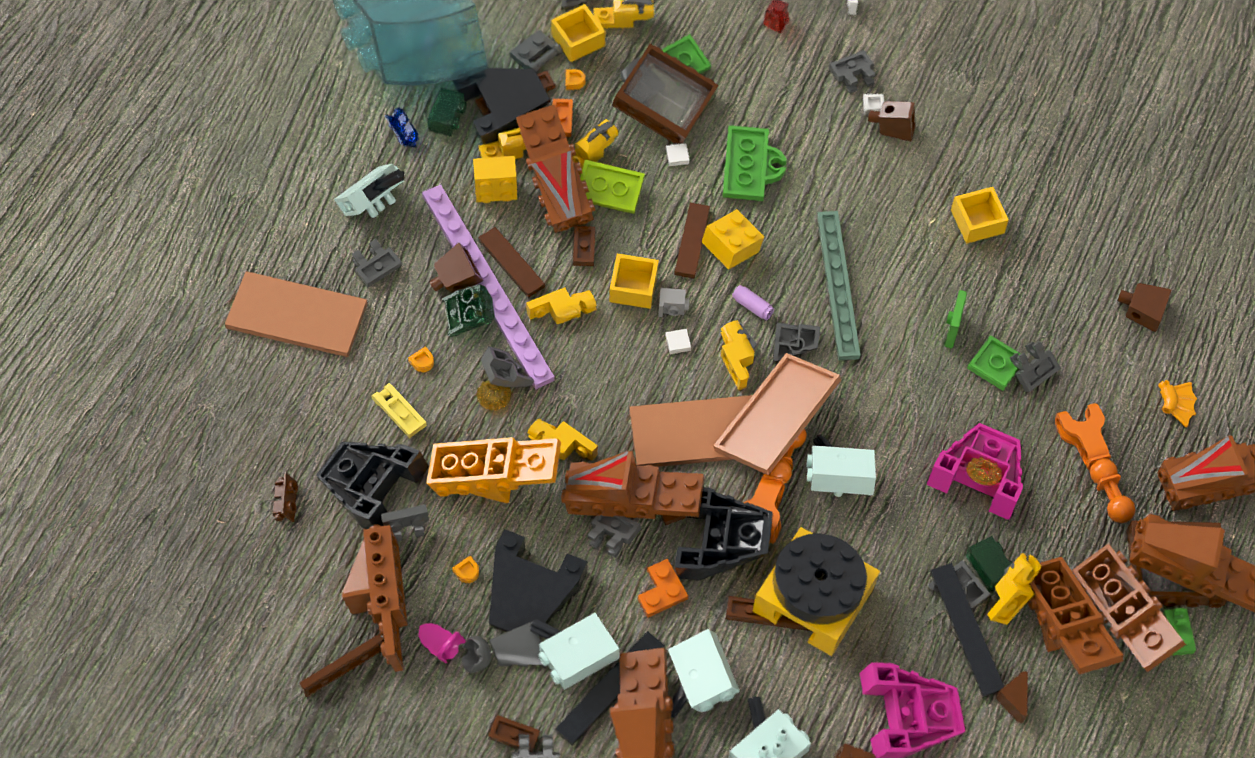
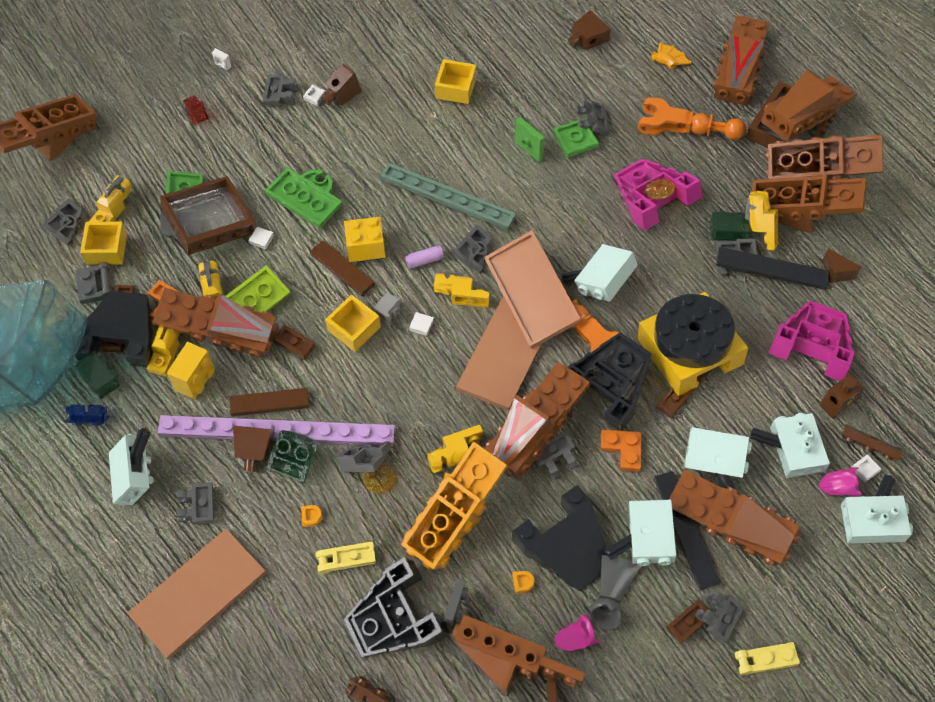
camera: 55 degrees left, 0 degrees up
(561, 305) = (337, 385): yellow plate -> none
(574, 79) = (139, 270): light orange tile -> none

